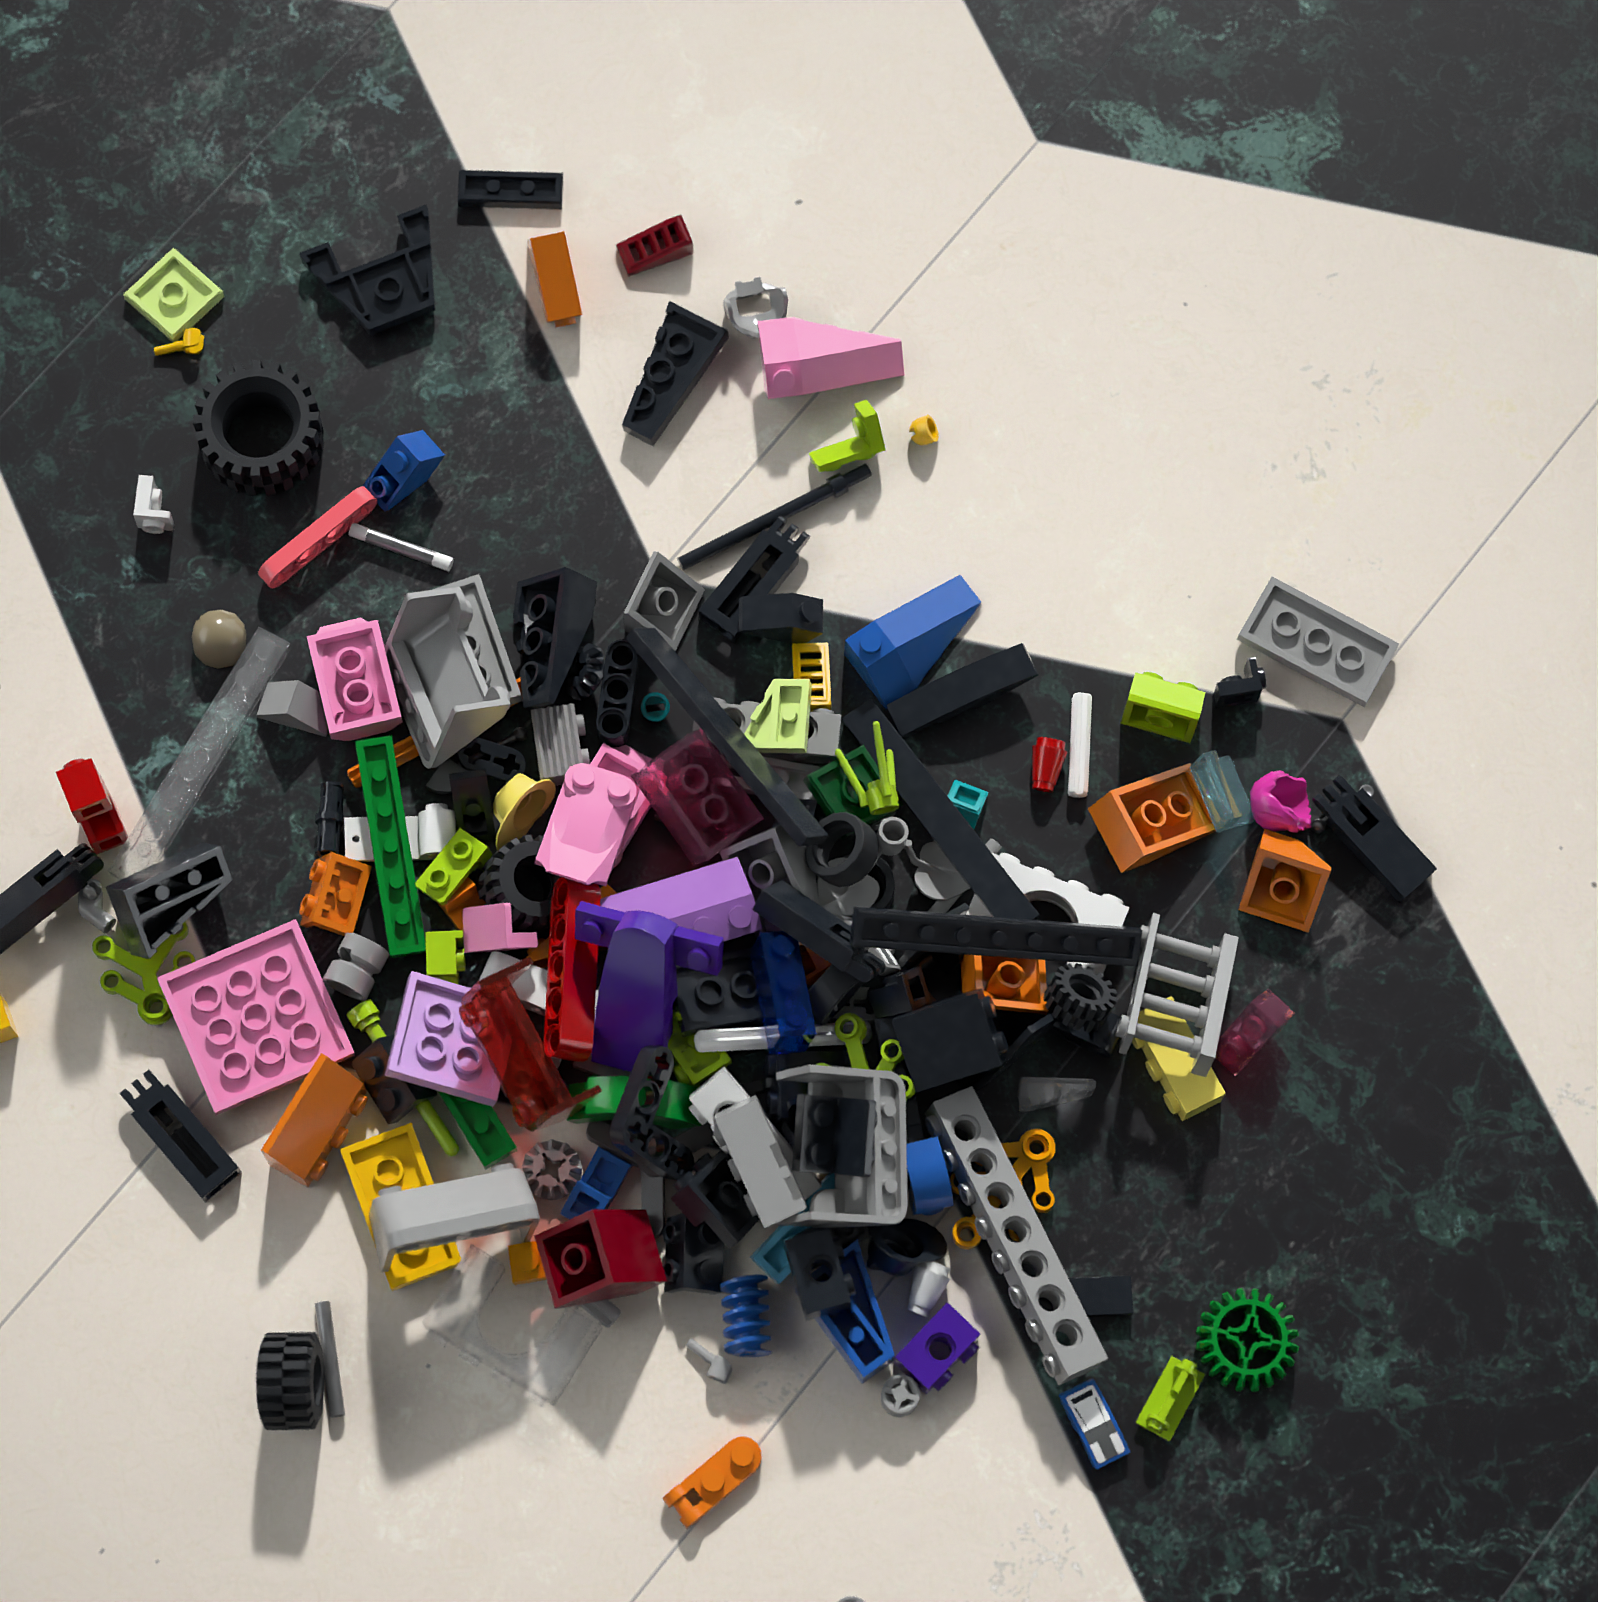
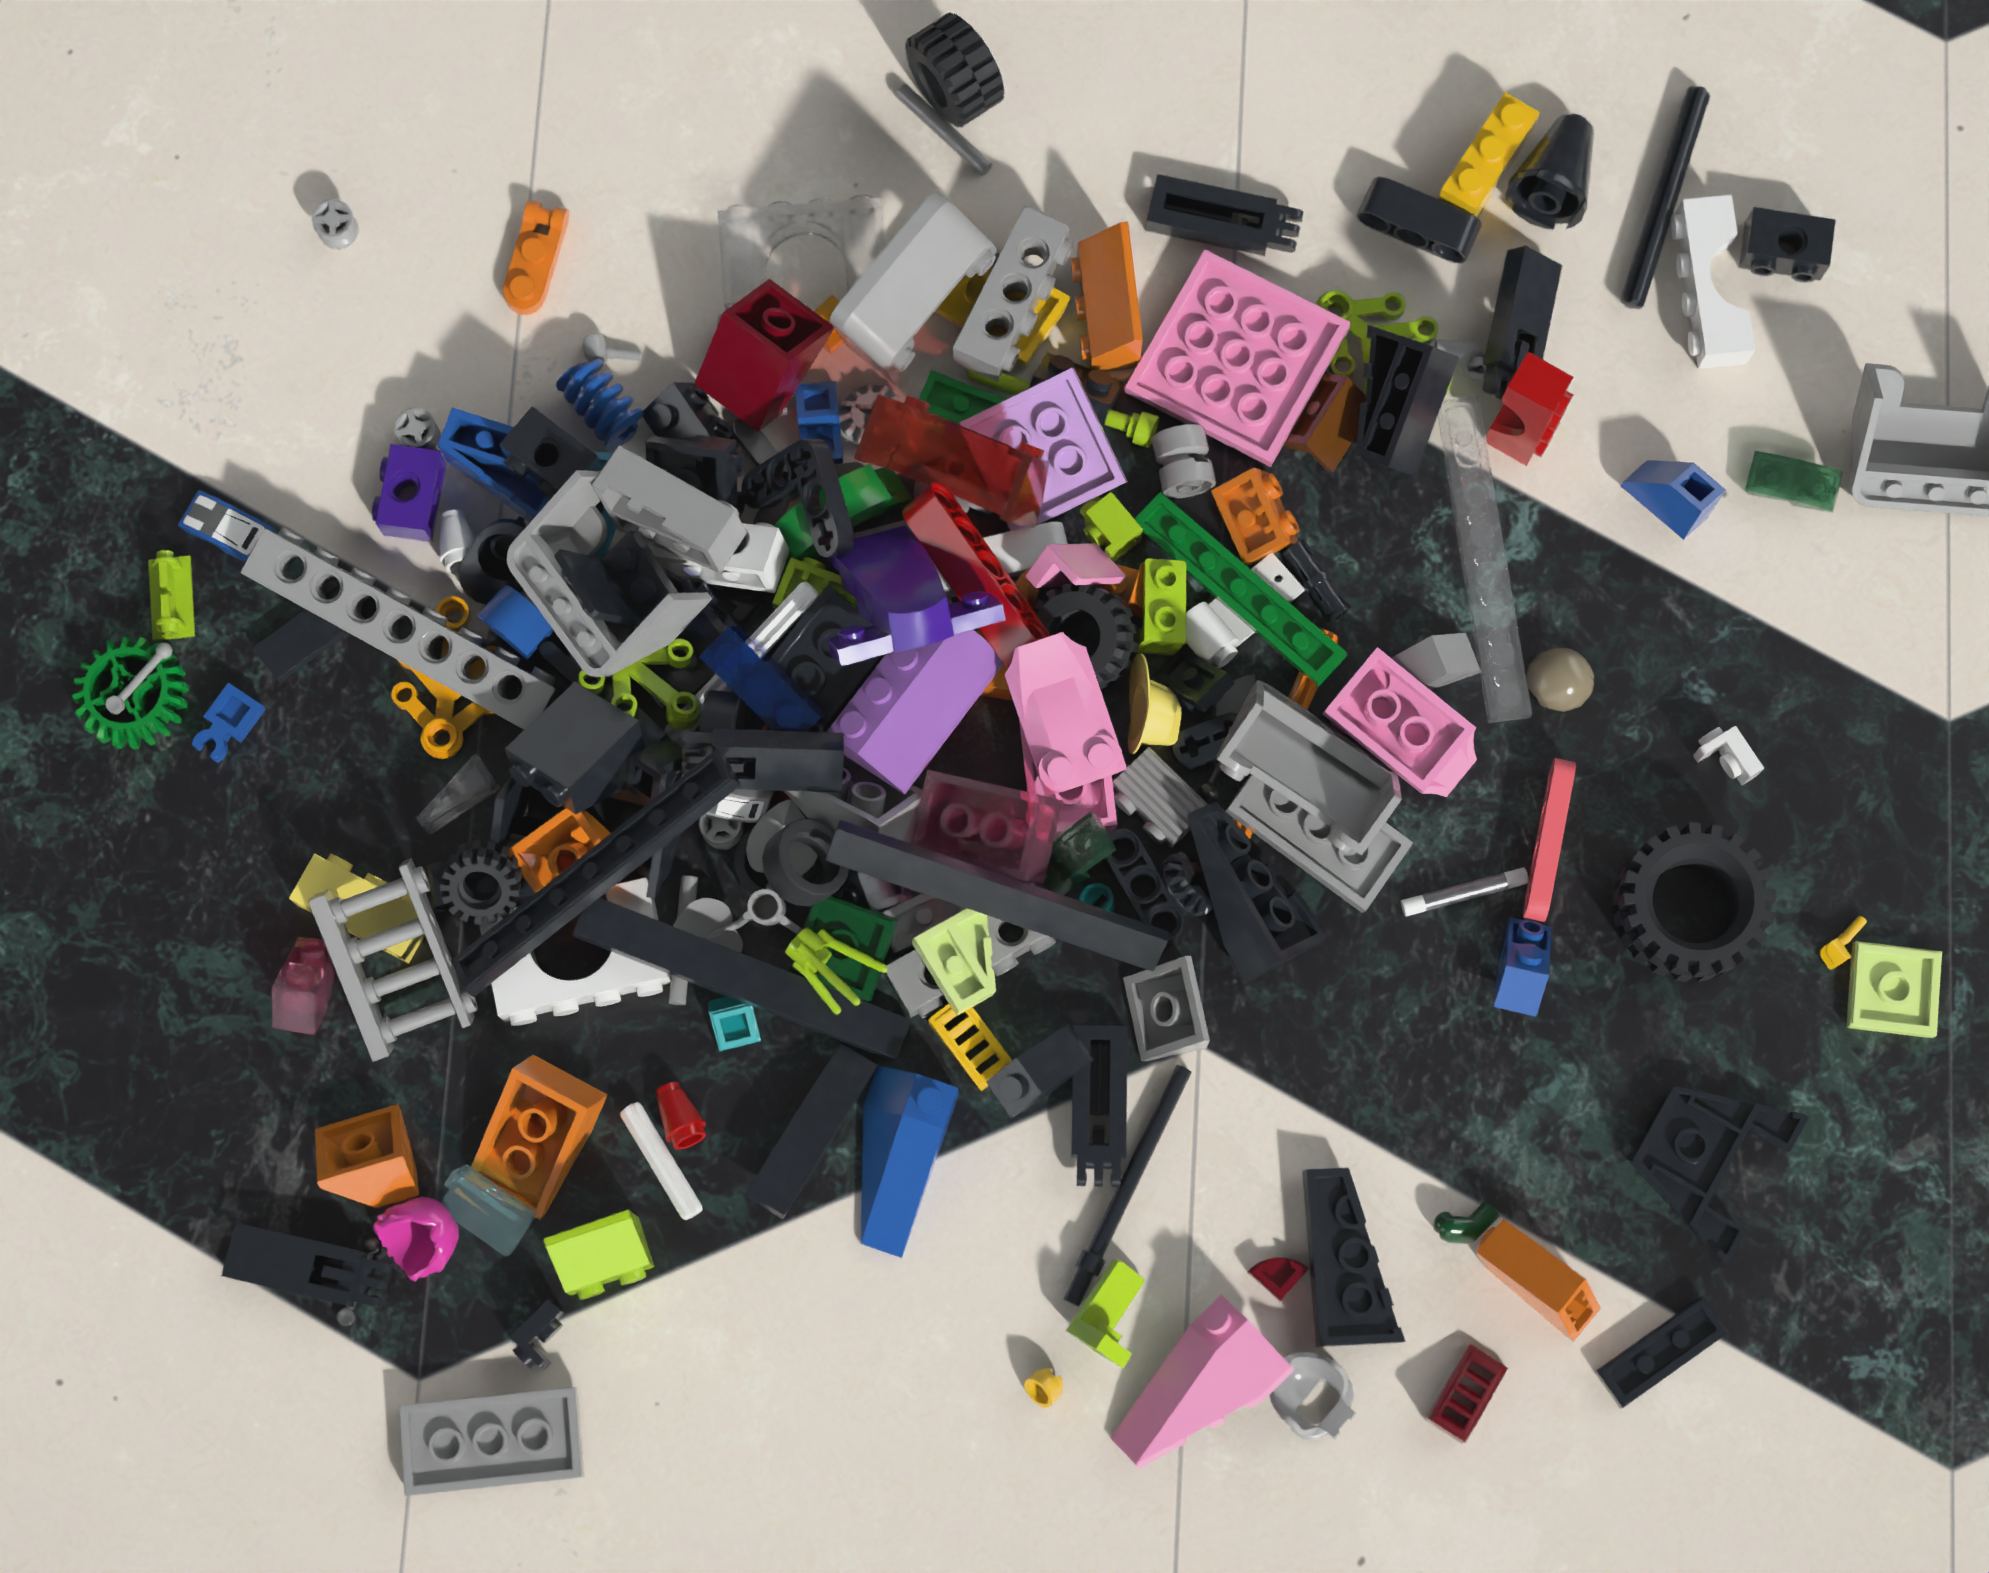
camera: 150 degrees right, 5 degrees up
(34, 700) = (1675, 493): none -> blue slope
(41, 1027) = (1419, 220): none -> black beam
(227, 925) = (1328, 421): none -> reddish brown panel
(439, 1156) = (1031, 235): none -> light grey brick
(574, 340) = (1465, 1229): none -> dark green arm
(643, 739) = (1076, 852): none -> clear green slope
(718, 397) = (1278, 1275): none -> dark red tile
(1183, 1270) = (231, 716): none -> blue plate
(1264, 1327) = (116, 704): none -> light grey hinge

